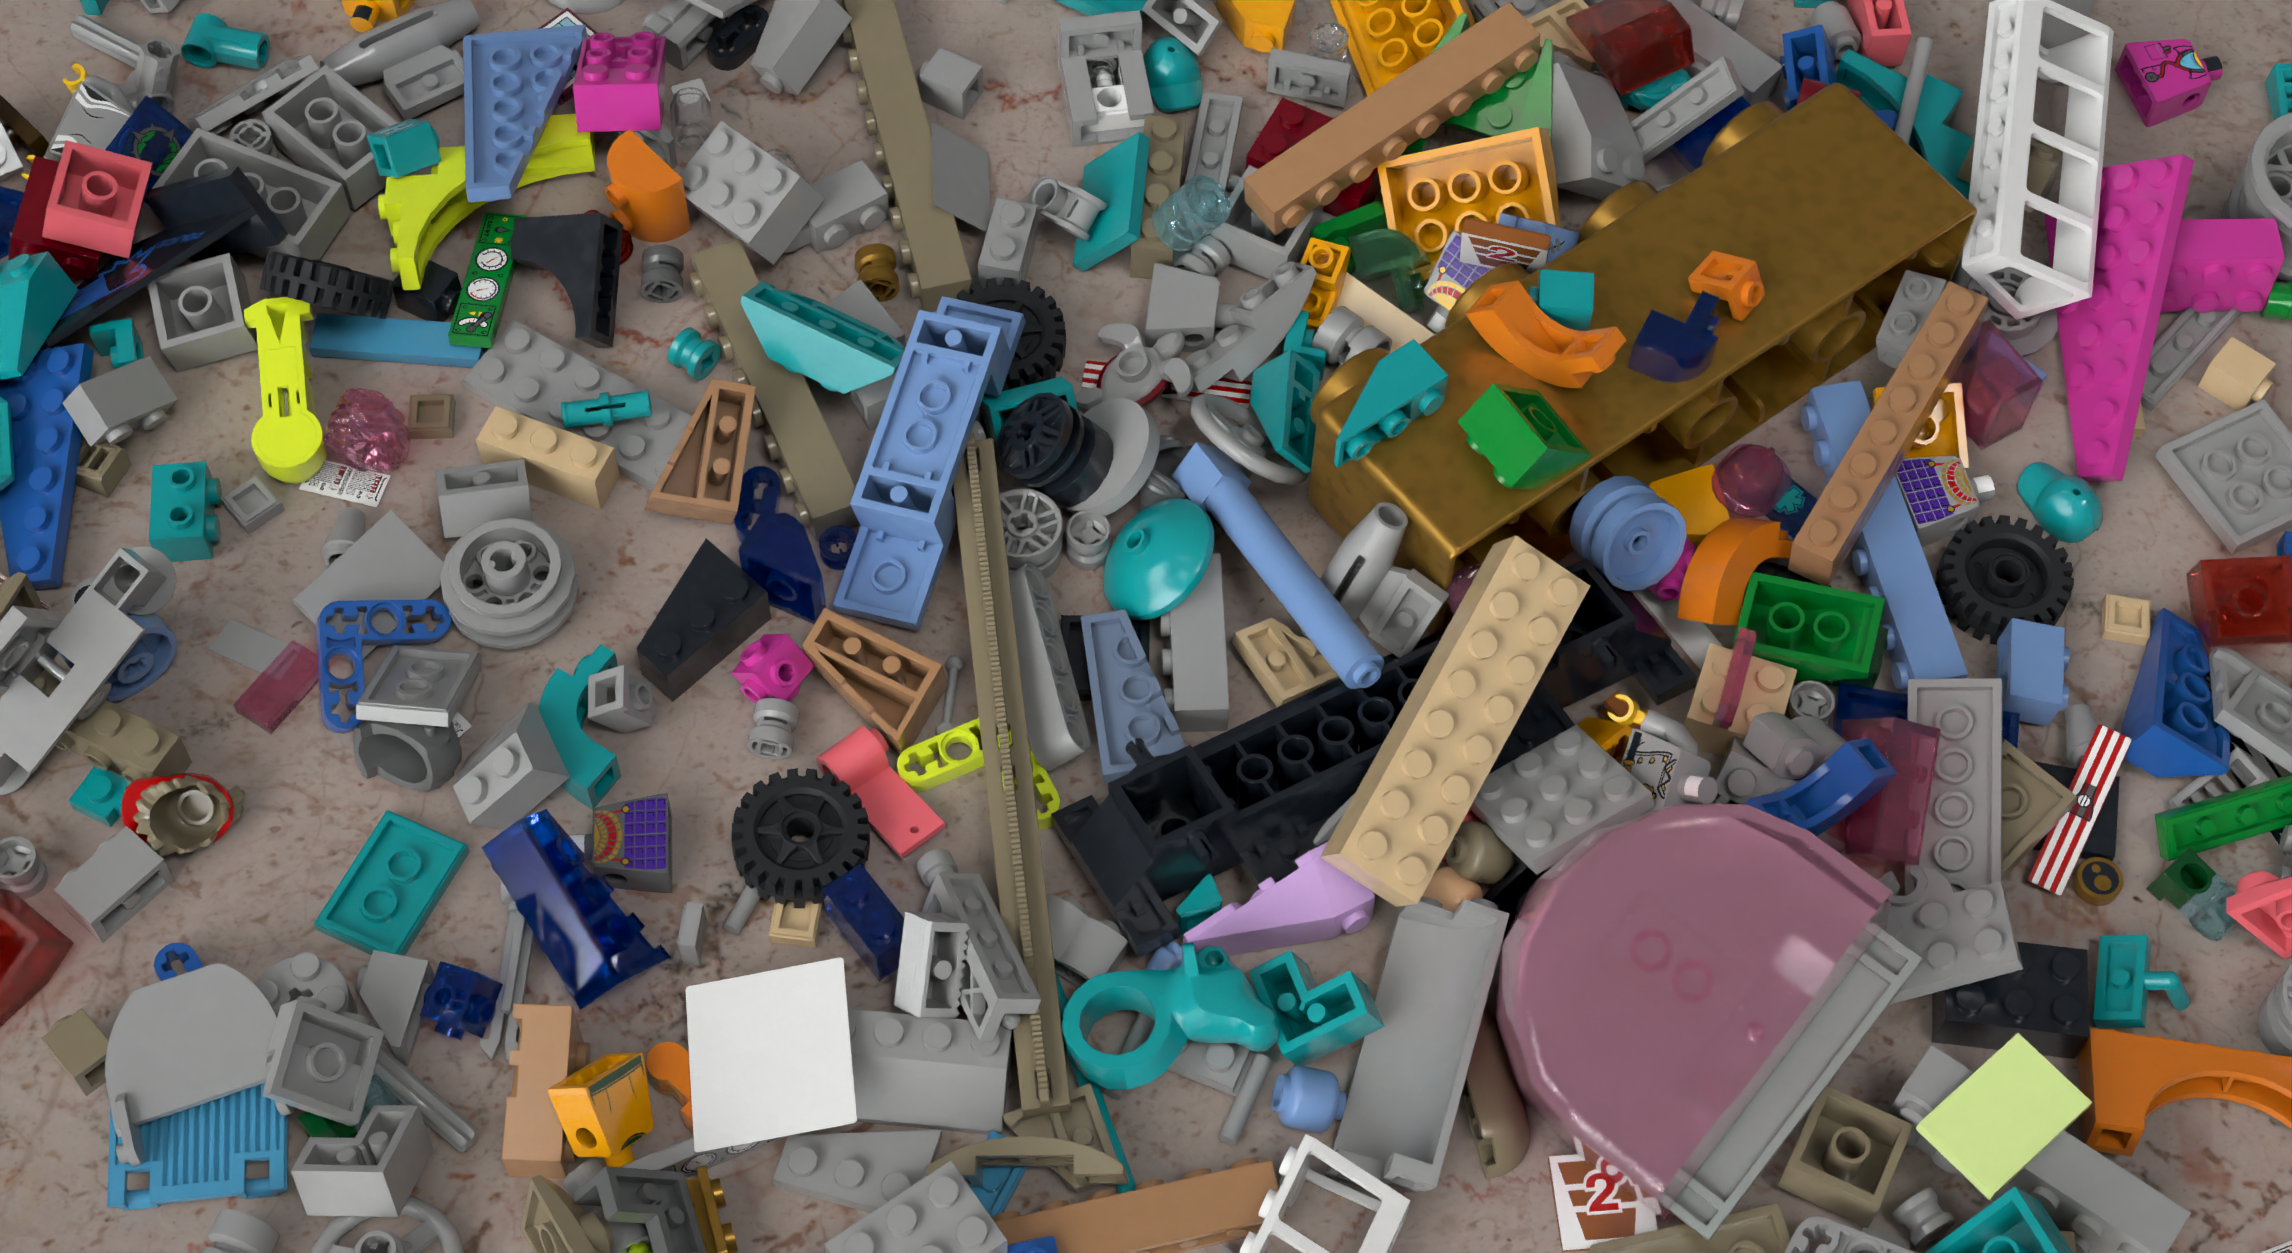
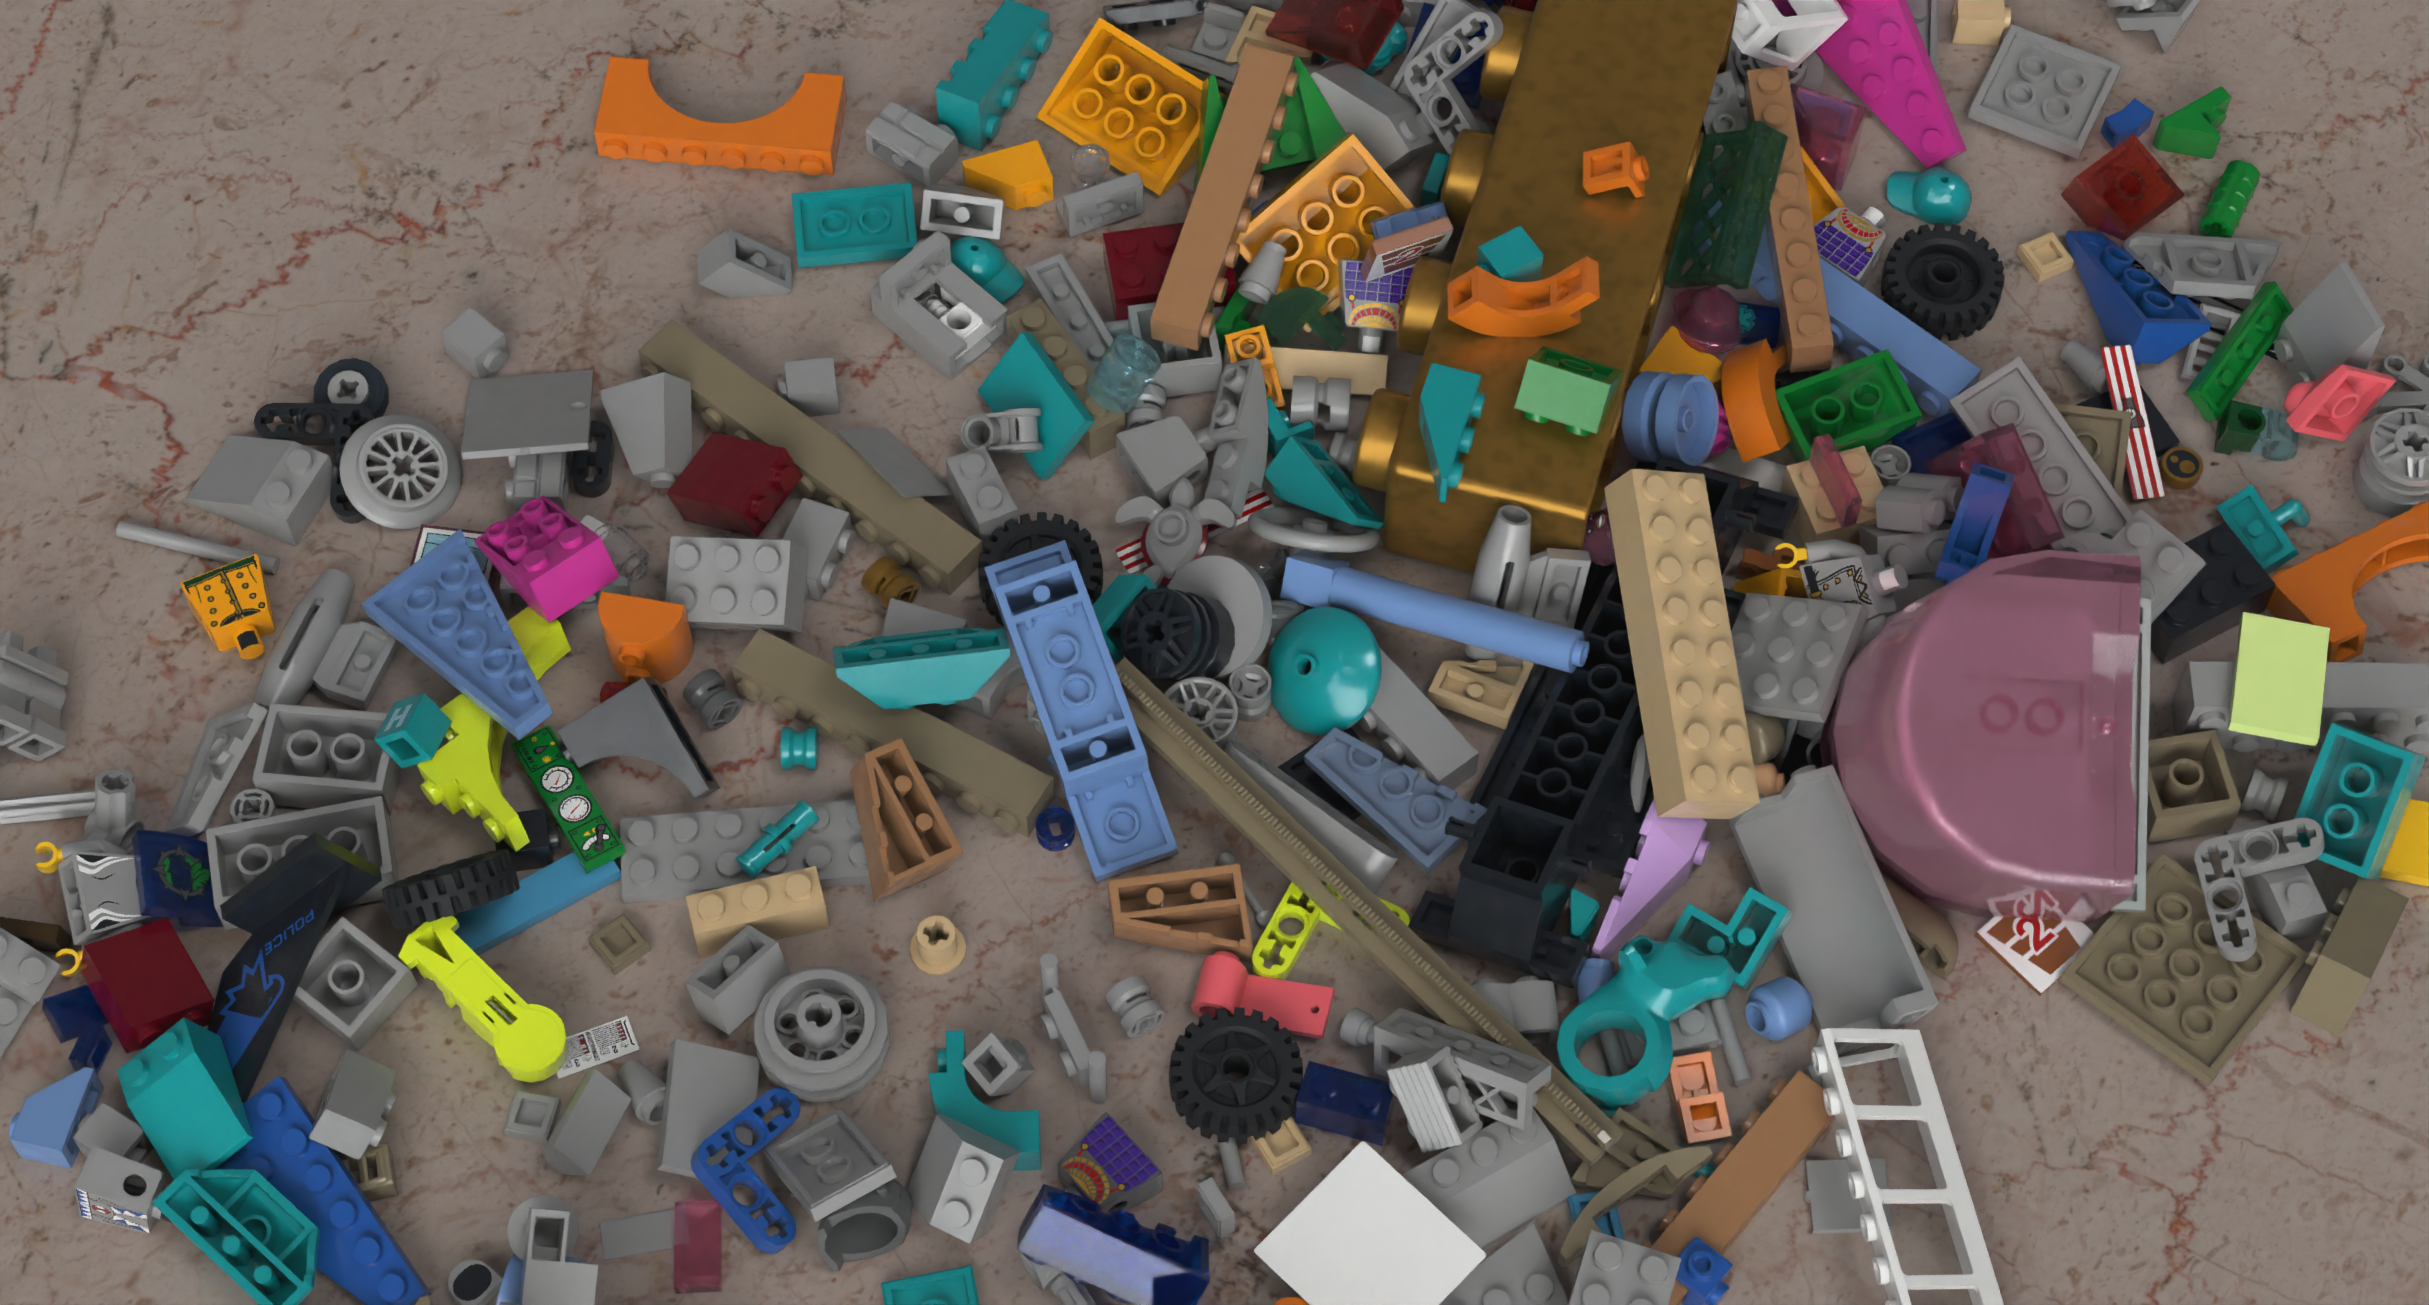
camera: 35 degrees left, 0 degrees up
(96, 199) = (182, 945): coral brick -> none
(118, 340) = (300, 1056): teal bracket -> none
(184, 511) = (485, 1161): teal brick -> none
(214, 41) = (138, 745): teal piece -> none
(274, 531) = (586, 1125): none -> light grey brick
(367, 431) = (589, 988): clear pink hair -> none
(661, 574) = (937, 946): none -> tan piece
(700, 706) = (1059, 1023): none -> light grey plate
(701, 622) = (1004, 953): black wedge -> none
(749, 504) = (970, 835): clear blue beam -> none
(772, 668) = (1096, 959): dark pink brick -> none
(784, 564) = (1044, 870): clear blue slope -> none
(819, 118) = (734, 484): none -> dark red brick
(1175, 1126) = (1698, 1099): none -> orange slope
(1383, 205) = (1263, 273): none -> light grey cone
(1665, 137) = (1439, 80): none -> light grey beam
(1676, 349) = (1623, 243): clear blue brick -> none
(1838, 390) = (1741, 213): none -> clear green fence
(2032, 670) = (2016, 329): medium blue brick -> none

